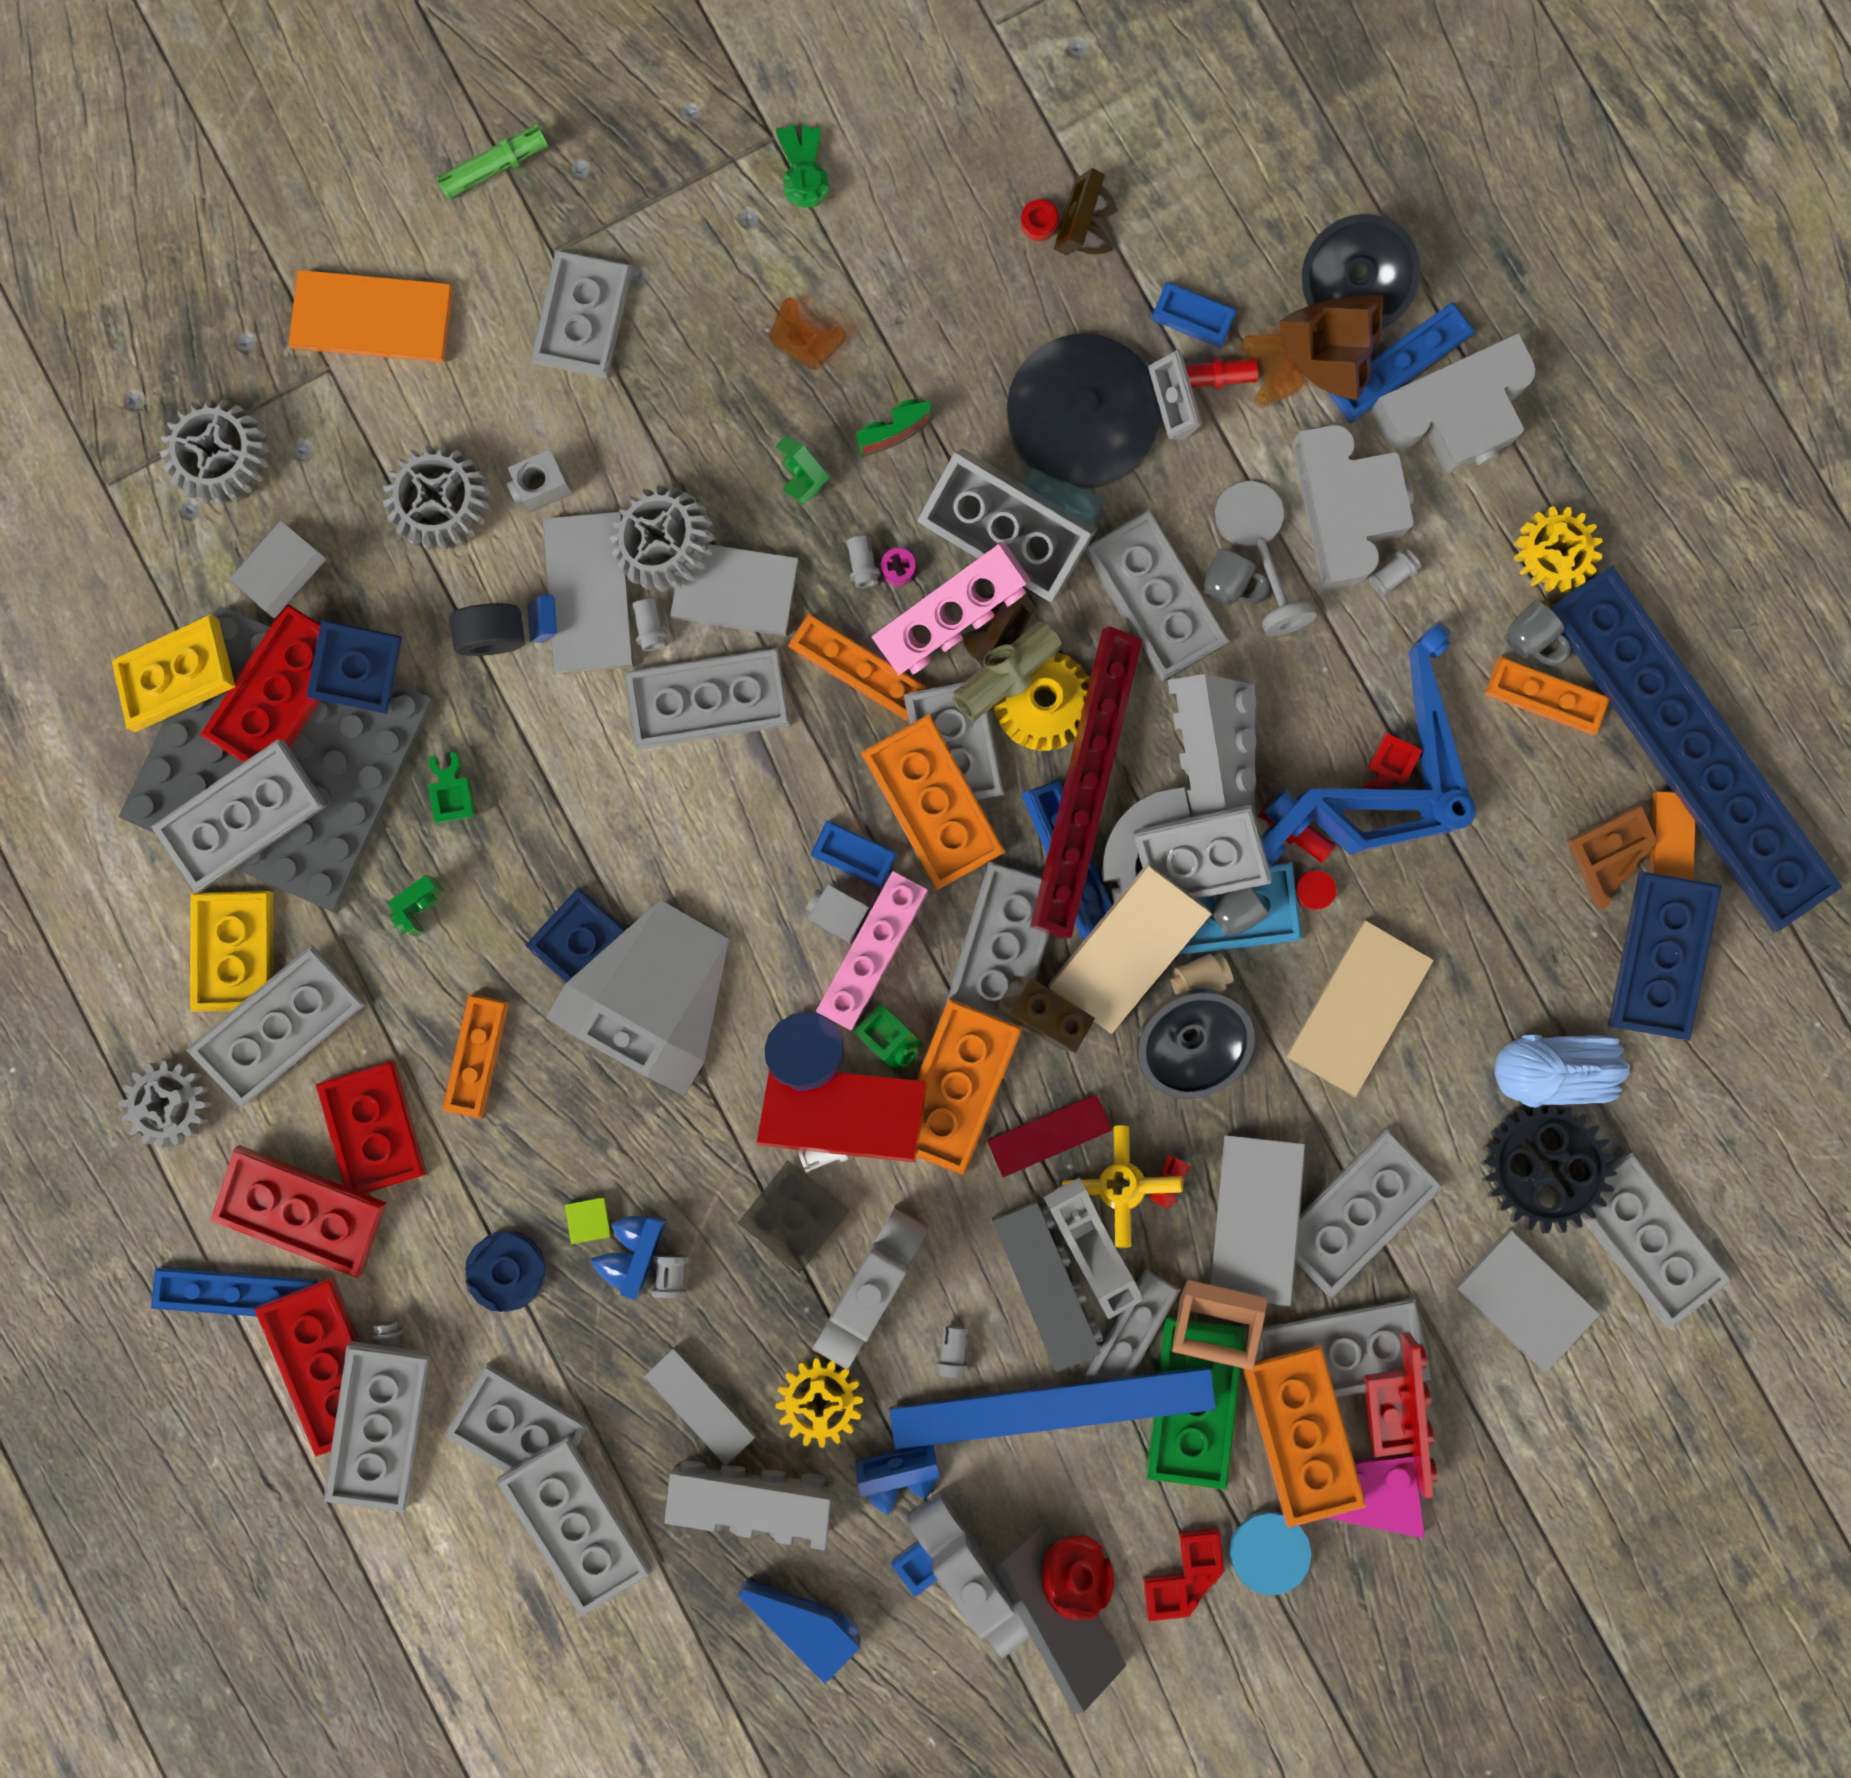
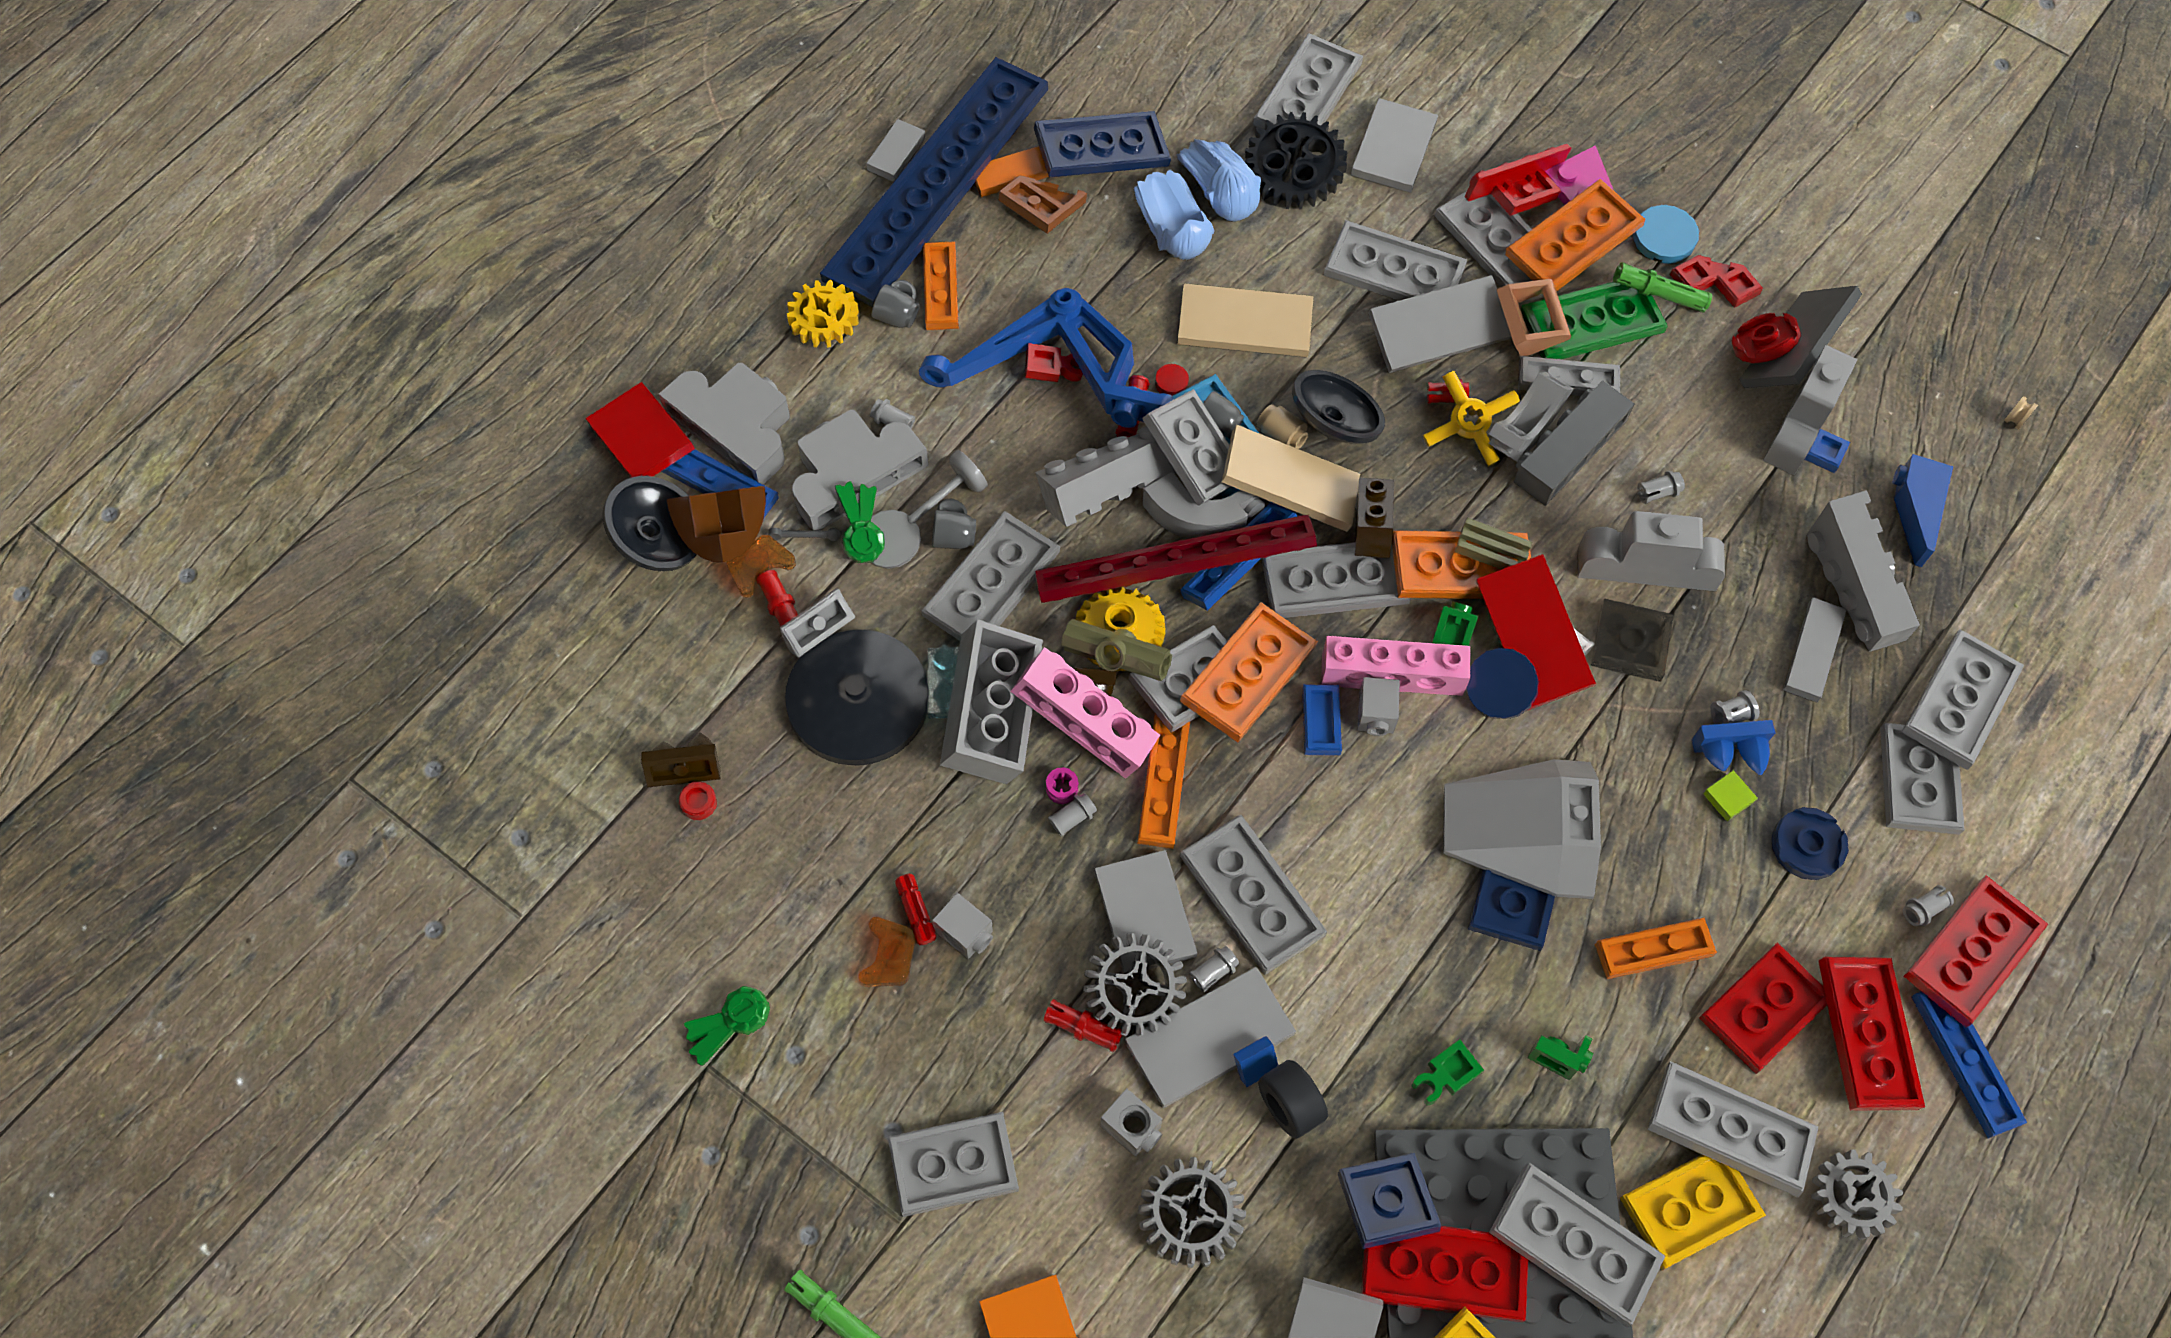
camera: 115 degrees left, 20 degrees down
(377, 1426) = (1993, 881): light grey tile -> none
(649, 477) = (1082, 1025): none -> red pin
(793, 409) = (963, 926): none -> light grey brick
(801, 1402) = (1757, 561): yellow gear -> none
(806, 471) = (1019, 892): green bracket -> none
(835, 376) = (915, 909): none -> red axle
(883, 1474) = (1771, 487): blue tile -> none
(906, 421) = (936, 830): green slope -> none
(934, 1148) = (1494, 541): none -> olive tile
(1049, 1135) = (1460, 487): dark red tile -> none
(1052, 1407) = (1660, 406): blue tile -> none
(1193, 314) = (734, 645): blue tile -> none
(1204, 1485) = (1650, 283): none -> bright green pin
(1256, 480) = (863, 539): none -> green piece
(1280, 459) = (832, 534): none -> dark grey hinge
(1482, 304) = (640, 433): none -> red tile
(1530, 989) = (1173, 215): none -> light blue hair
(1755, 722) = (896, 150): none -> light grey tile

